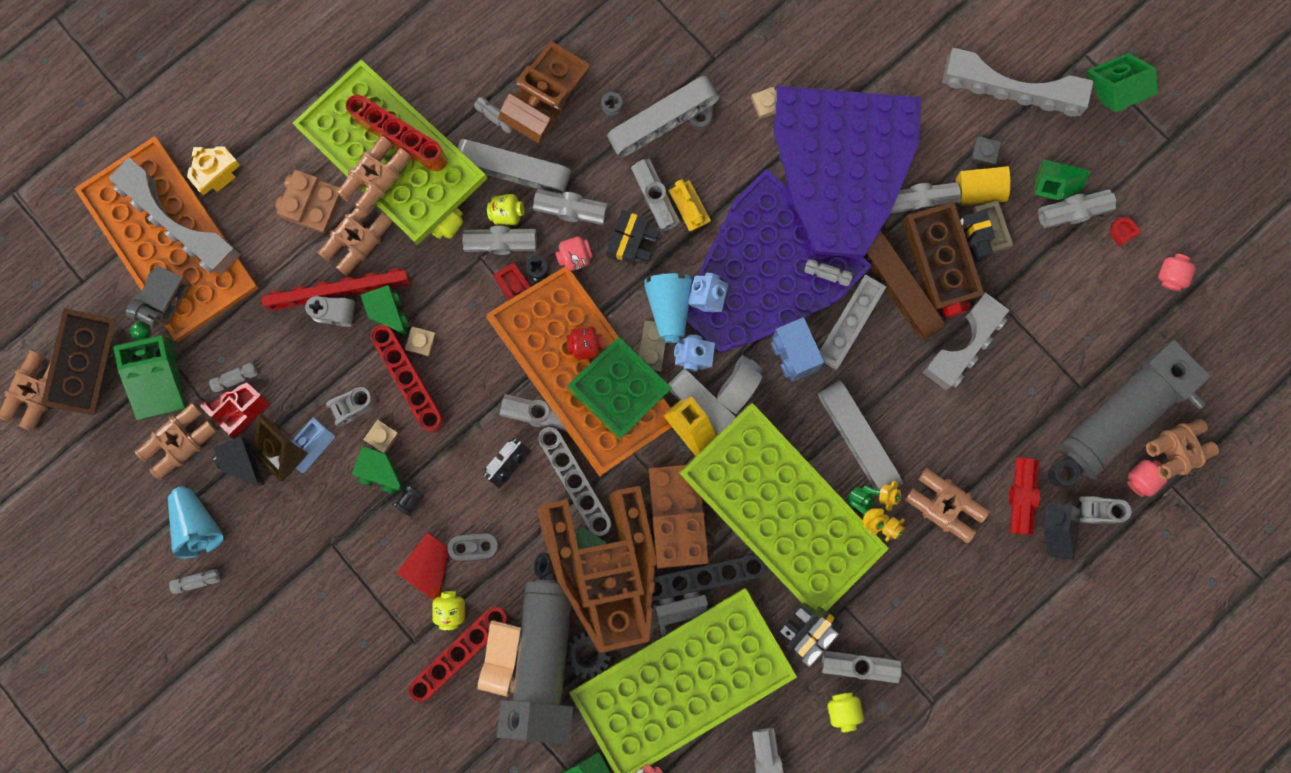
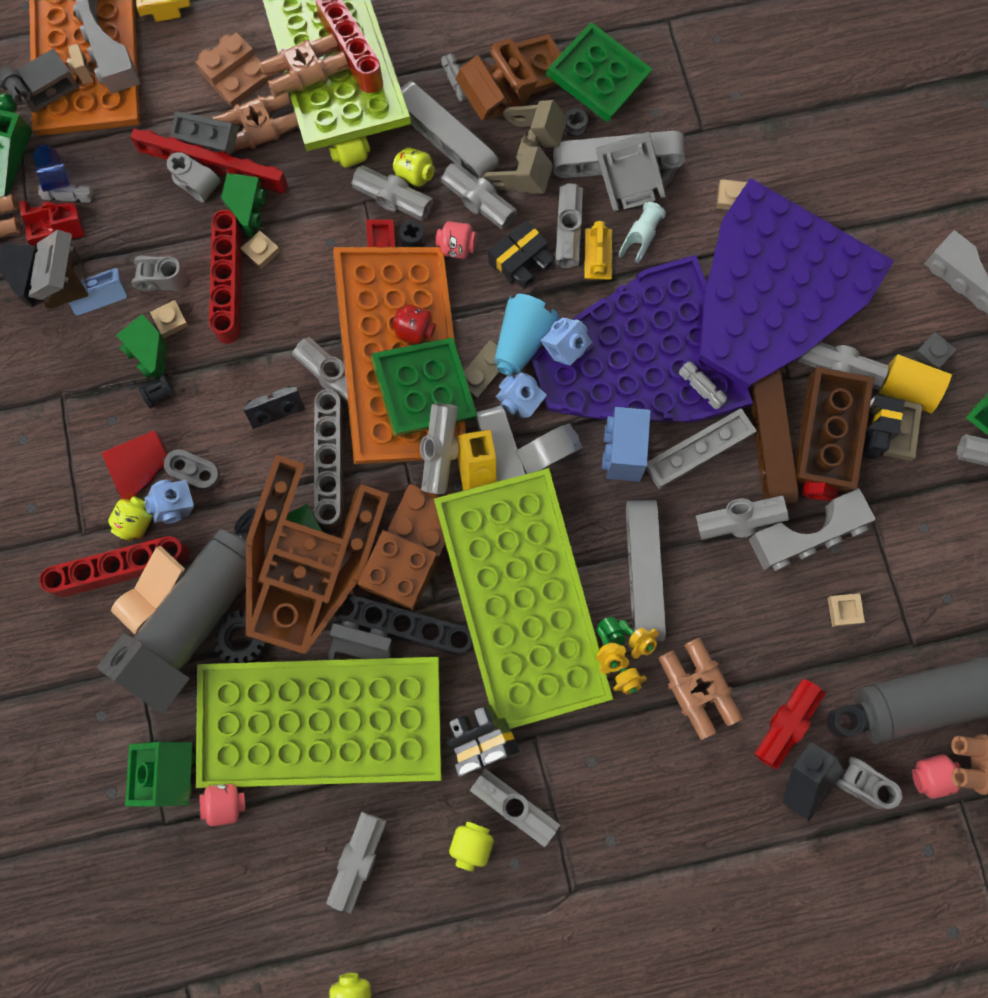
camera: 25 degrees right, 5 degrees down
(182, 265) = (79, 64): none -> tan plate
(214, 368) = (50, 169): none -> clear blue piece
(262, 448) = (50, 265): none -> light grey container
(320, 269) = (204, 131): none -> dark grey plate
(472, 581) = (169, 501): none -> light blue brick
(603, 161) = (534, 167): none -> dark tan piece
(609, 54) = (599, 72): none -> green plate
(659, 430) = (439, 448): none -> light grey piece
(684, 130) = (632, 175): none -> light grey container
(714, 168) = (644, 229): none -> light aqua piece
(911, 360) = (742, 517): none -> light grey piece
(1021, 389) = (846, 610): none -> tan plate

